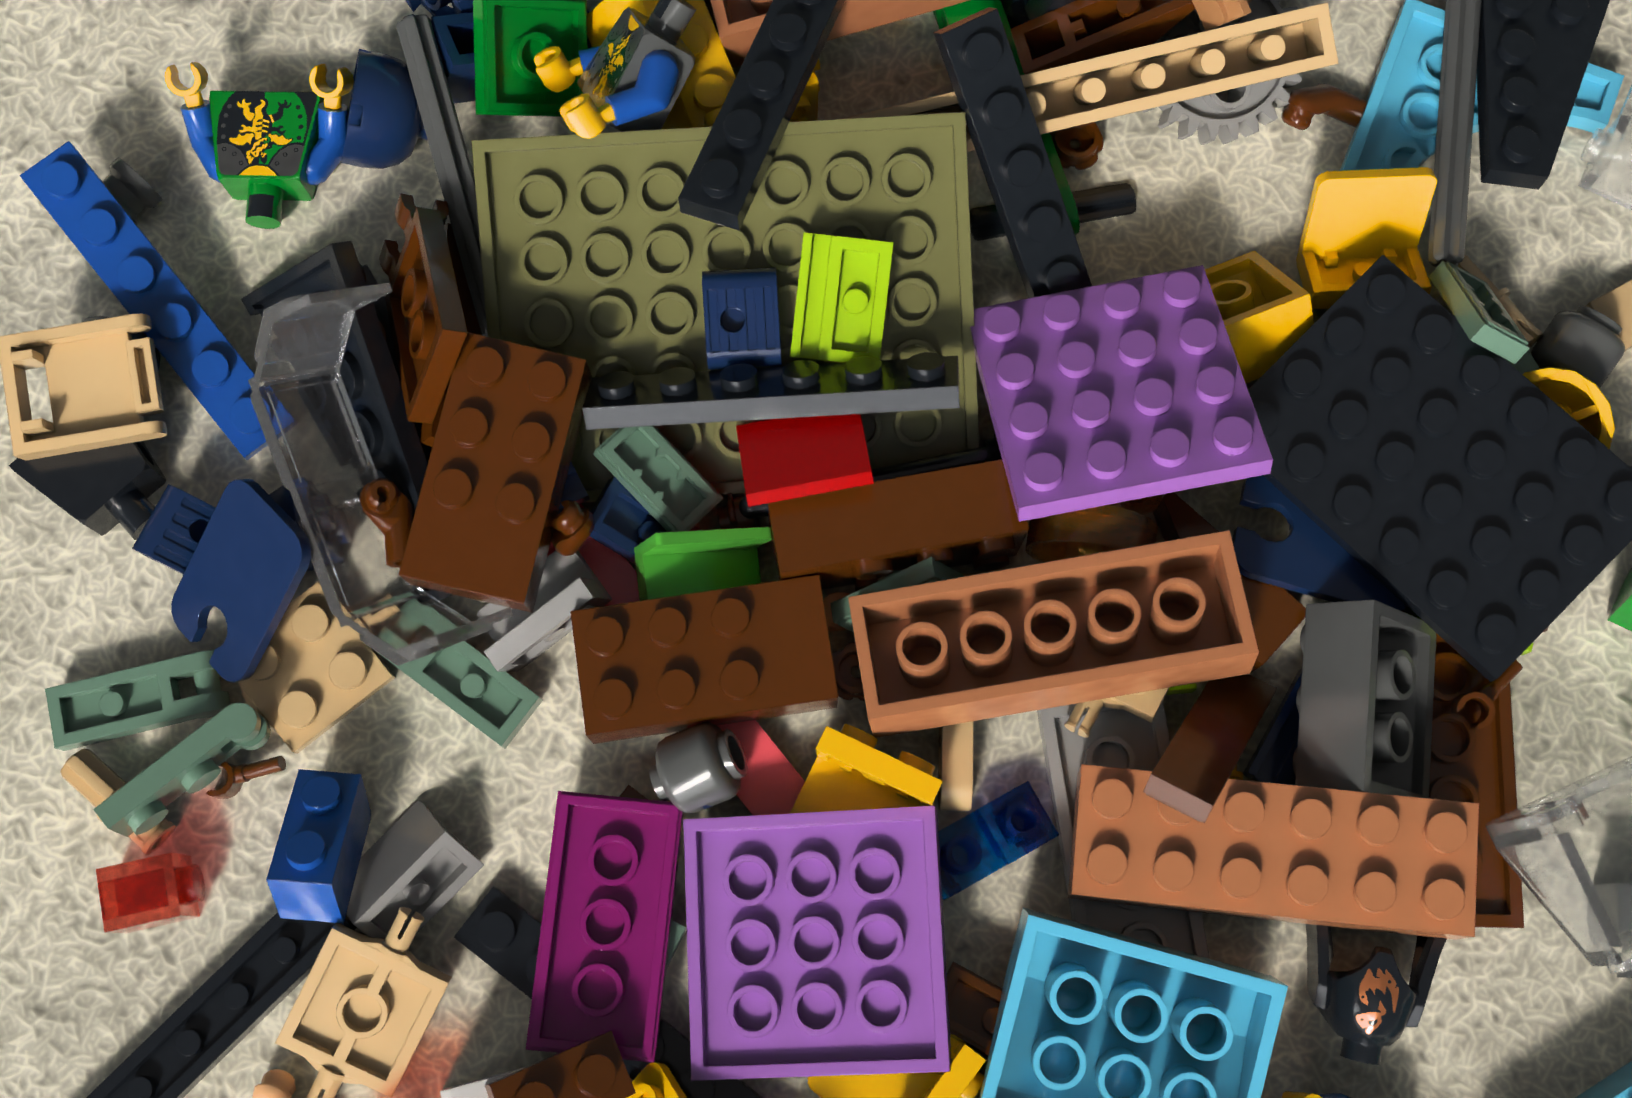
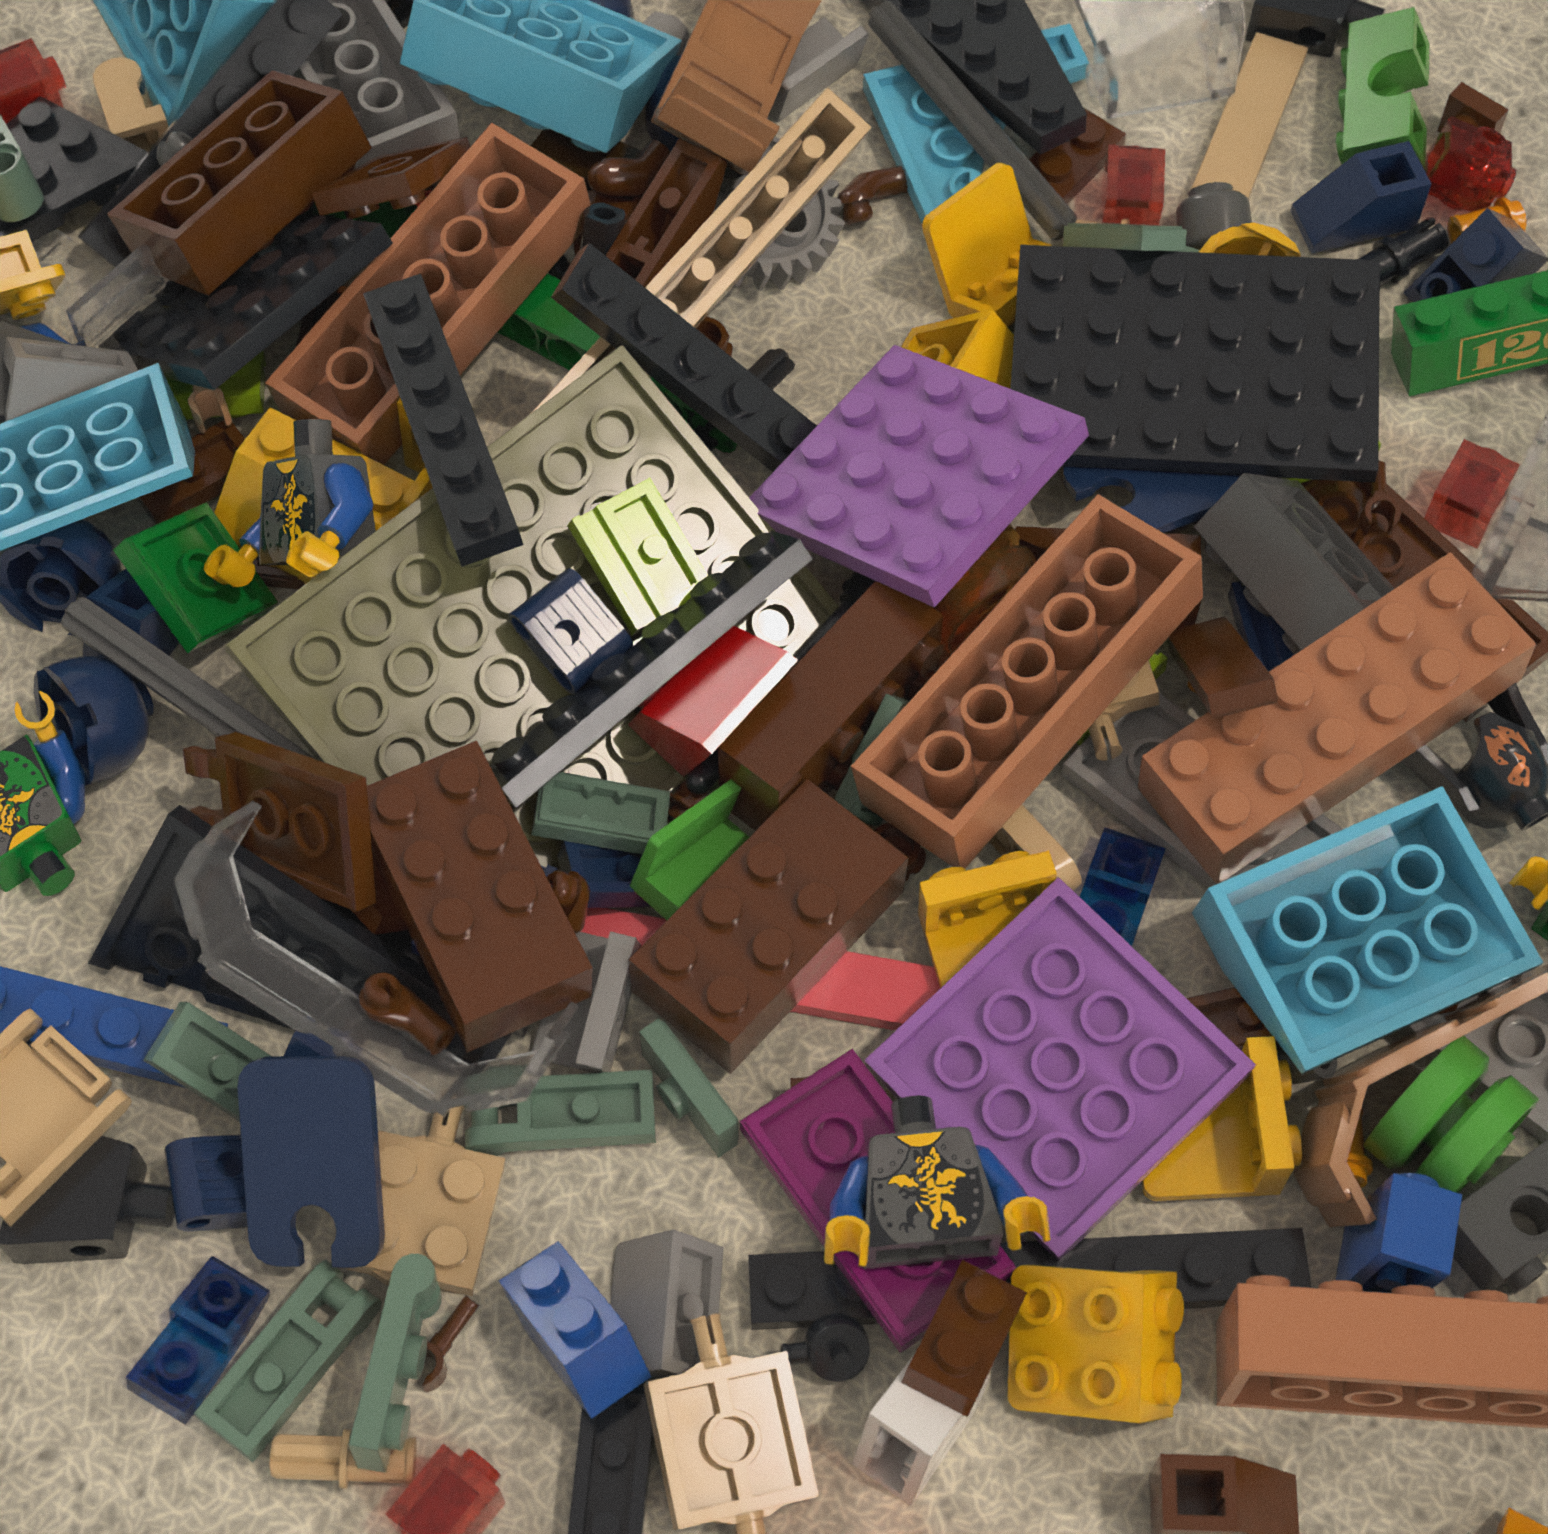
camera: 40 degrees left, 15 degrees down
(97, 636) = (199, 1341): none -> clear blue slope
(239, 440) = (203, 1056): none -> sand green plate
(490, 1002) = (833, 1347): none -> black piece
(552, 730) = (687, 1089): none -> sand green plate
(621, 966) = (928, 1196): none -> torso
(698, 767) = (840, 1010): dark grey head -> none
(1505, 208) = (1080, 159): none -> reddish brown plate
(1541, 265) = (1133, 185): none -> clear red brick
(1575, 746) = (1471, 493): none -> clear red brick

